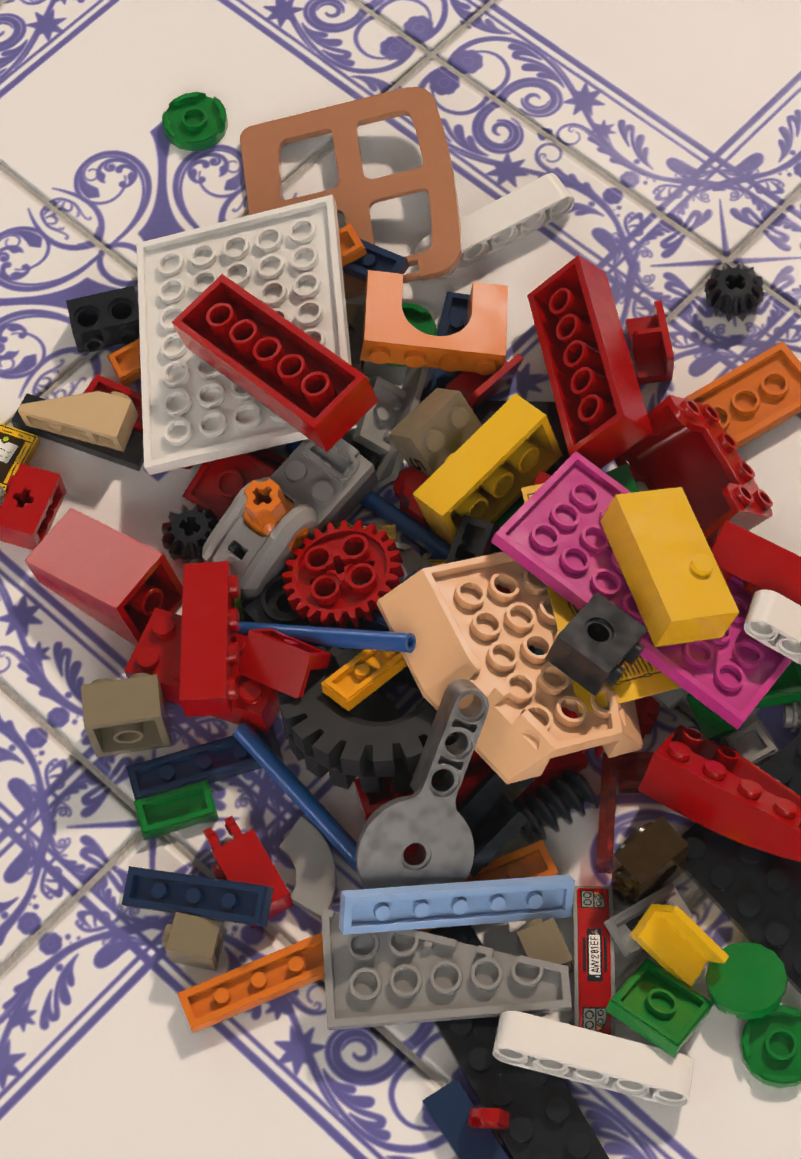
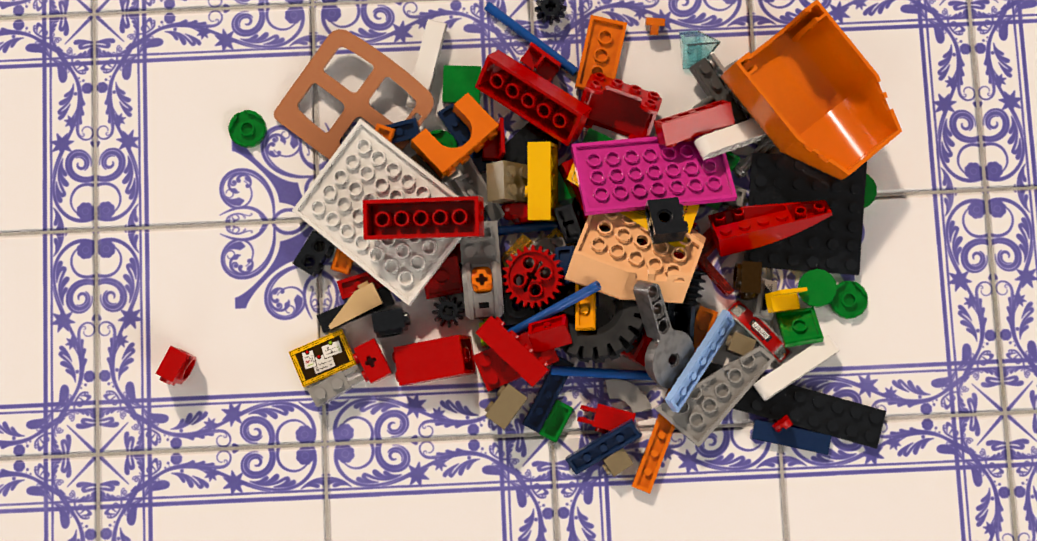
camera: 50 degrees left, 20 degrees up
(101, 473) = (390, 322): none -> black brick
(521, 275) = (460, 81): none -> green tile
(667, 294) = (529, 37): none -> blue piece
(669, 566) = (656, 161): yellow brick -> none

